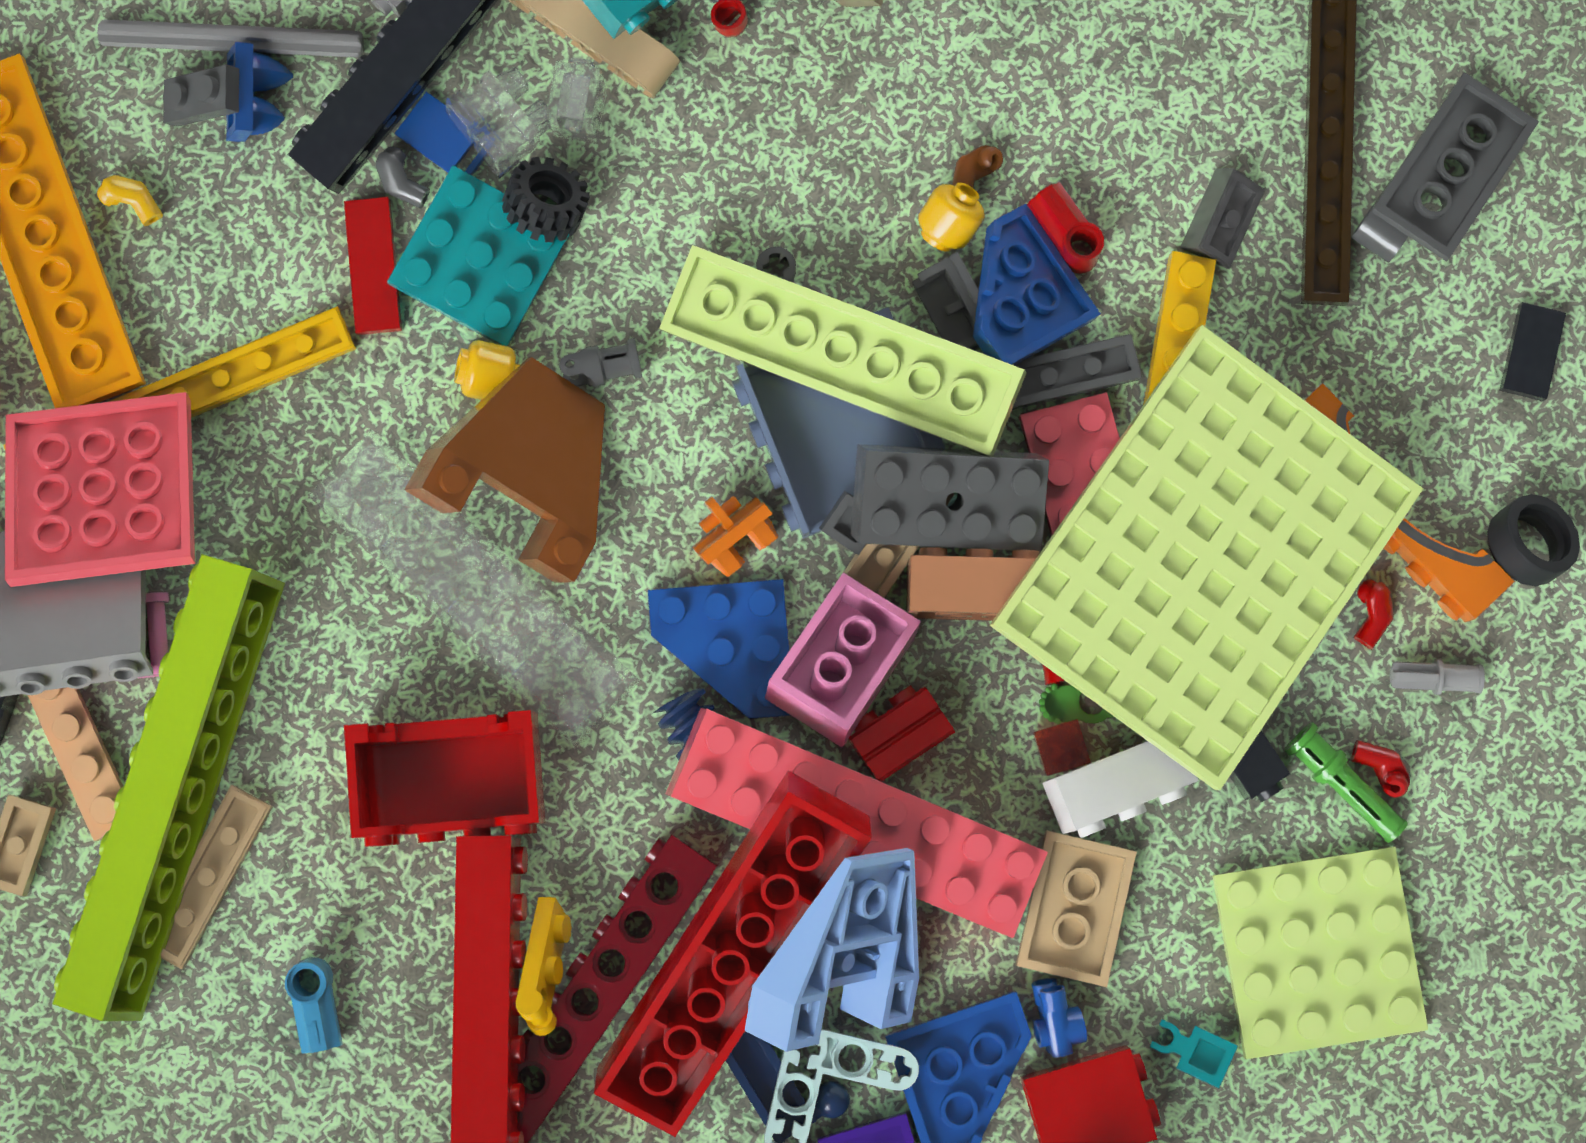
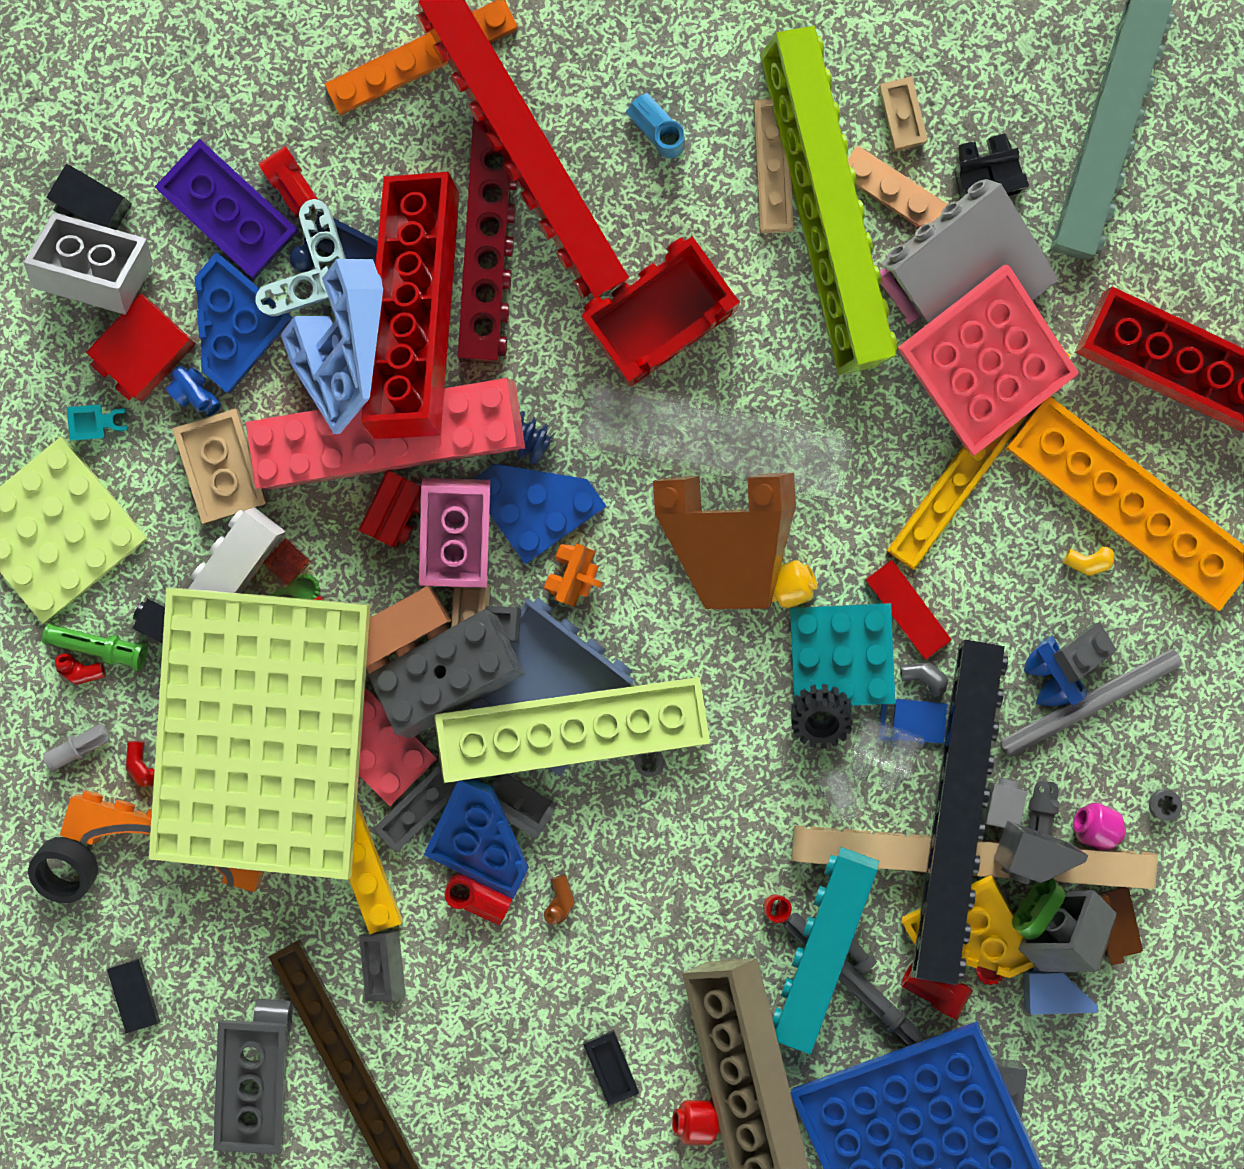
camera: 150 degrees right, 5 degrees up
(543, 965) = (527, 232): yellow plate -> none
(598, 365) = (725, 630): dark grey piece -> none
(951, 216) = (555, 860): yellow head -> none

